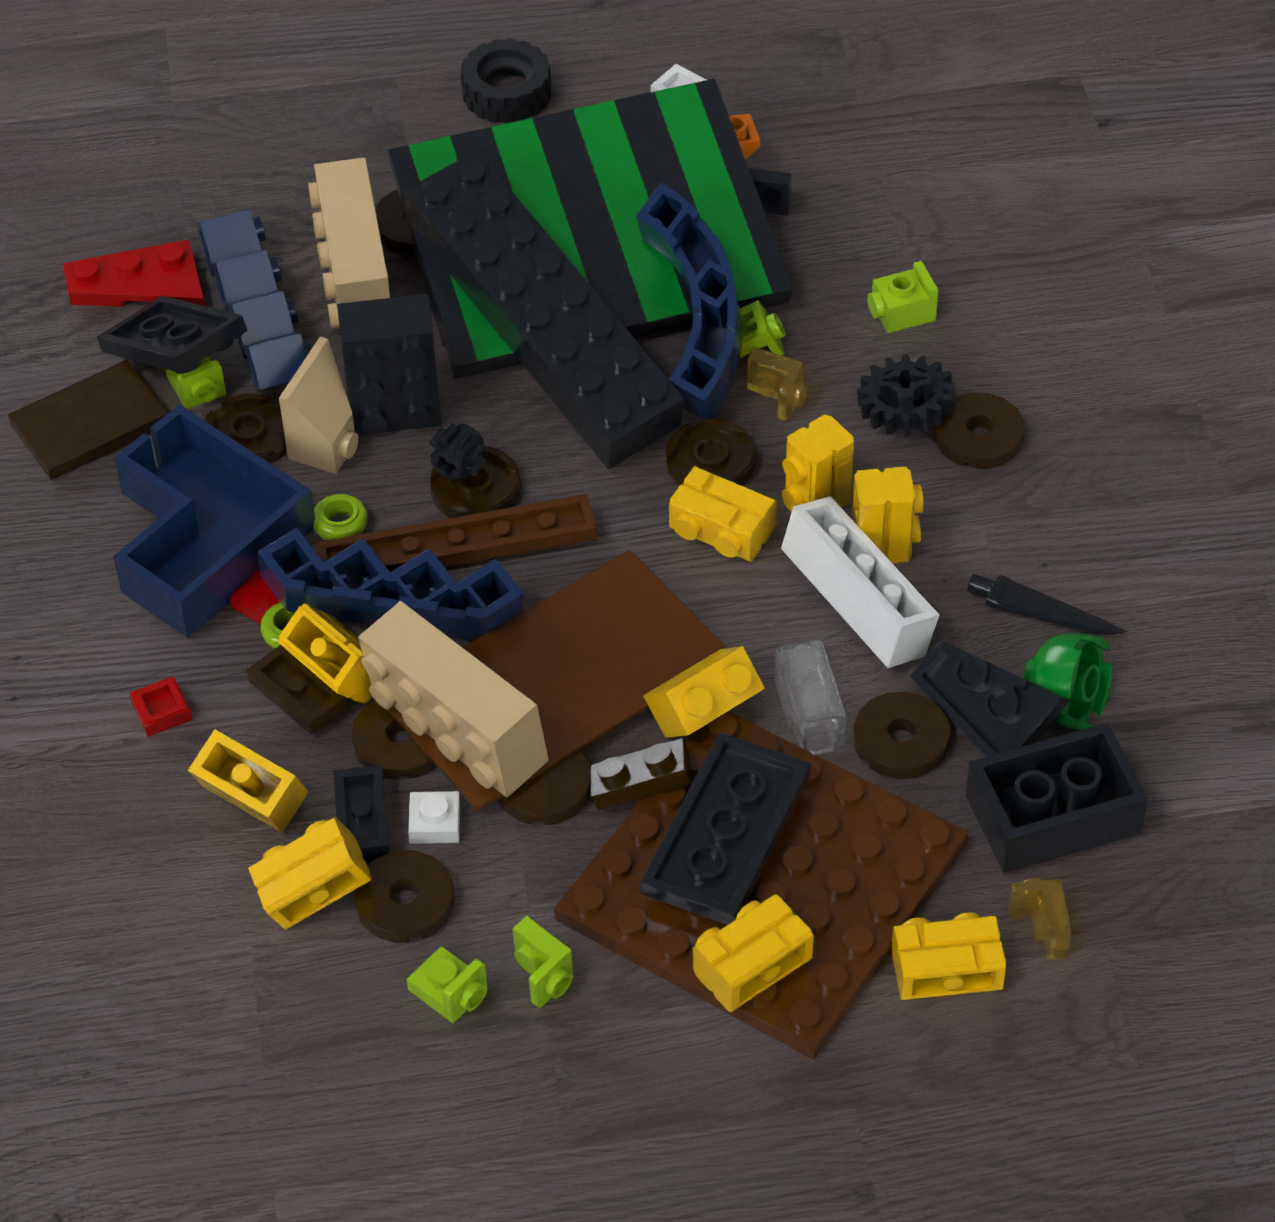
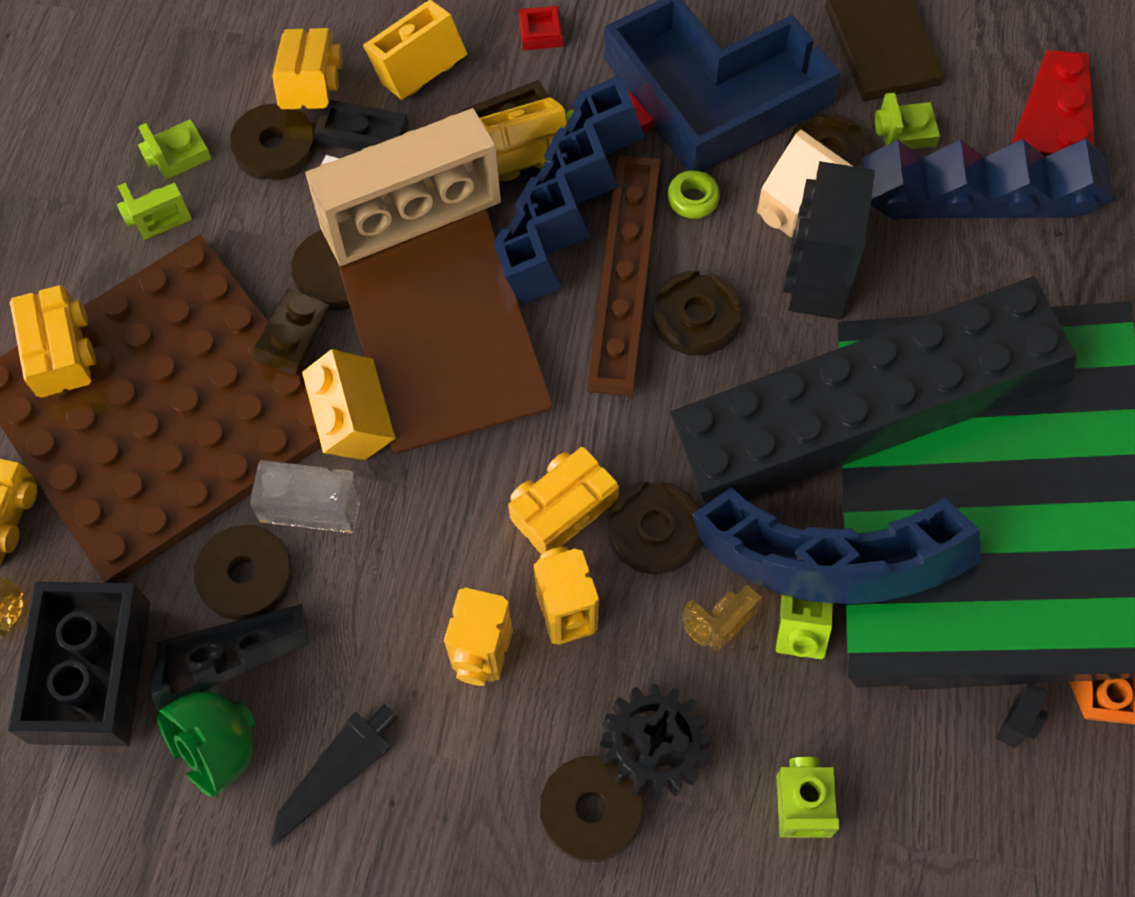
camera: 110 degrees right, 15 degrees up
(172, 334) = (949, 100): black plate -> none
(349, 233) = (984, 252): tan brick -> none
(457, 451) = (714, 284): black gear -> none
(725, 829) = (187, 368): black plate -> none
(859, 582) = (411, 585): white brick -> none

